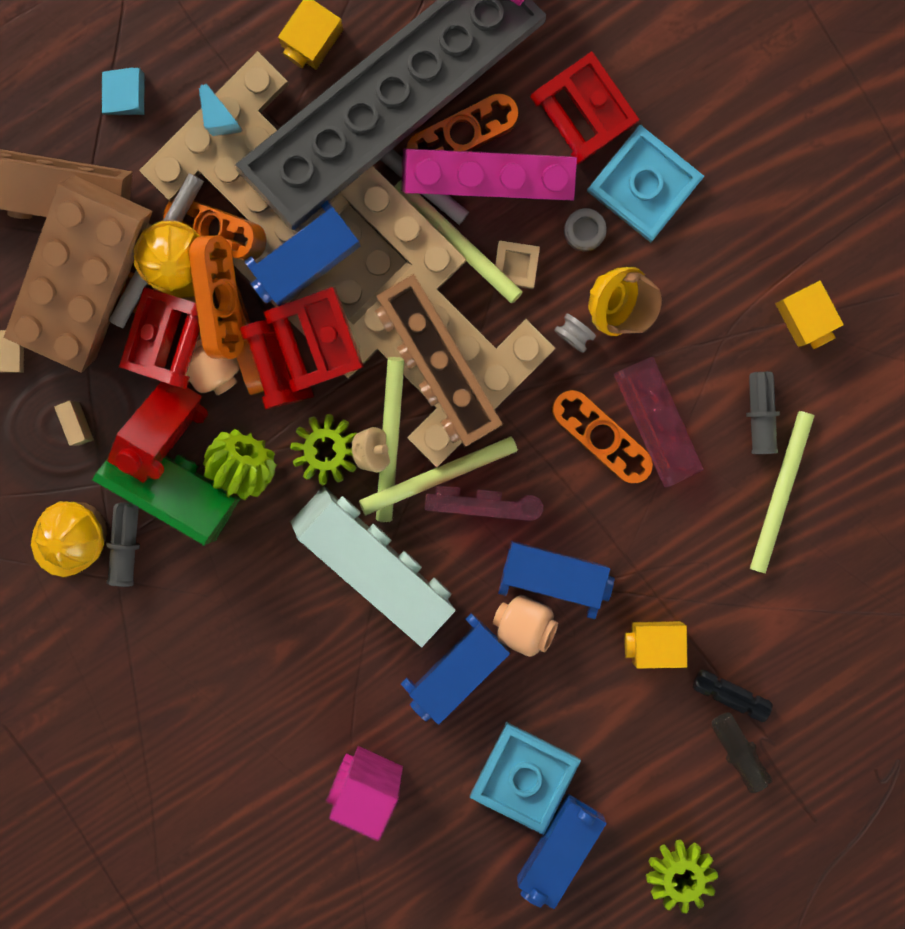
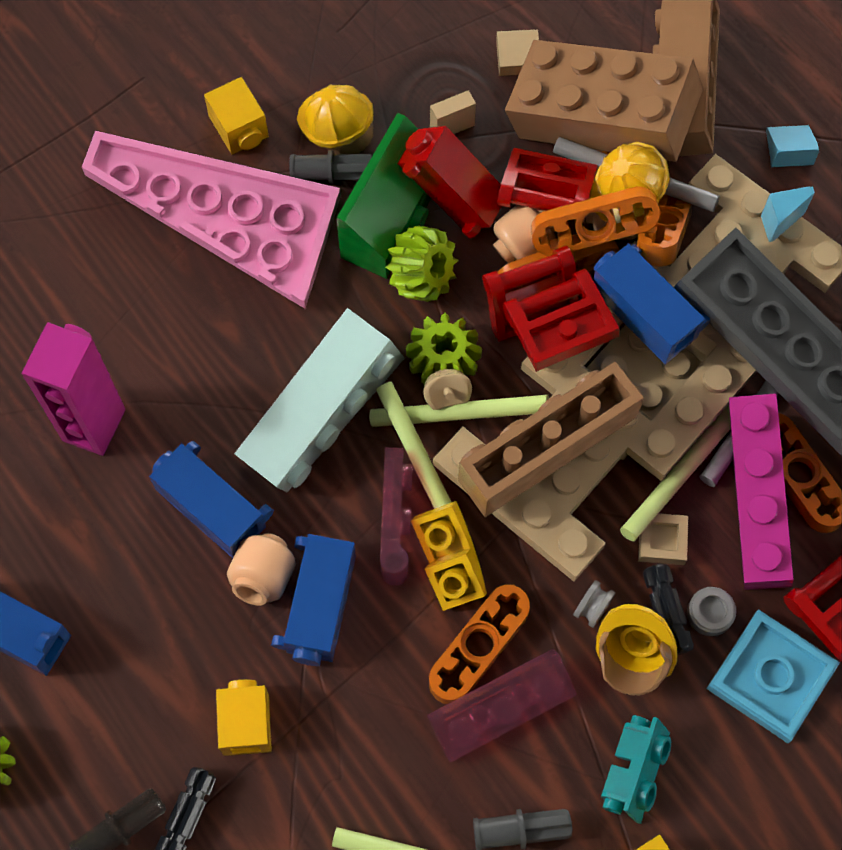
camera: 85 degrees right, 20 degrees down
(62, 635) = (236, 116): none -> yellow brick
(168, 632) = (243, 214): none -> bright pink wing
(525, 778) = (89, 584): medium azure tile -> none
(528, 454) = (451, 556): none -> yellow slope
(580, 268) = (667, 604): none -> black axle
(706, 302) = (635, 786): none -> teal hinge

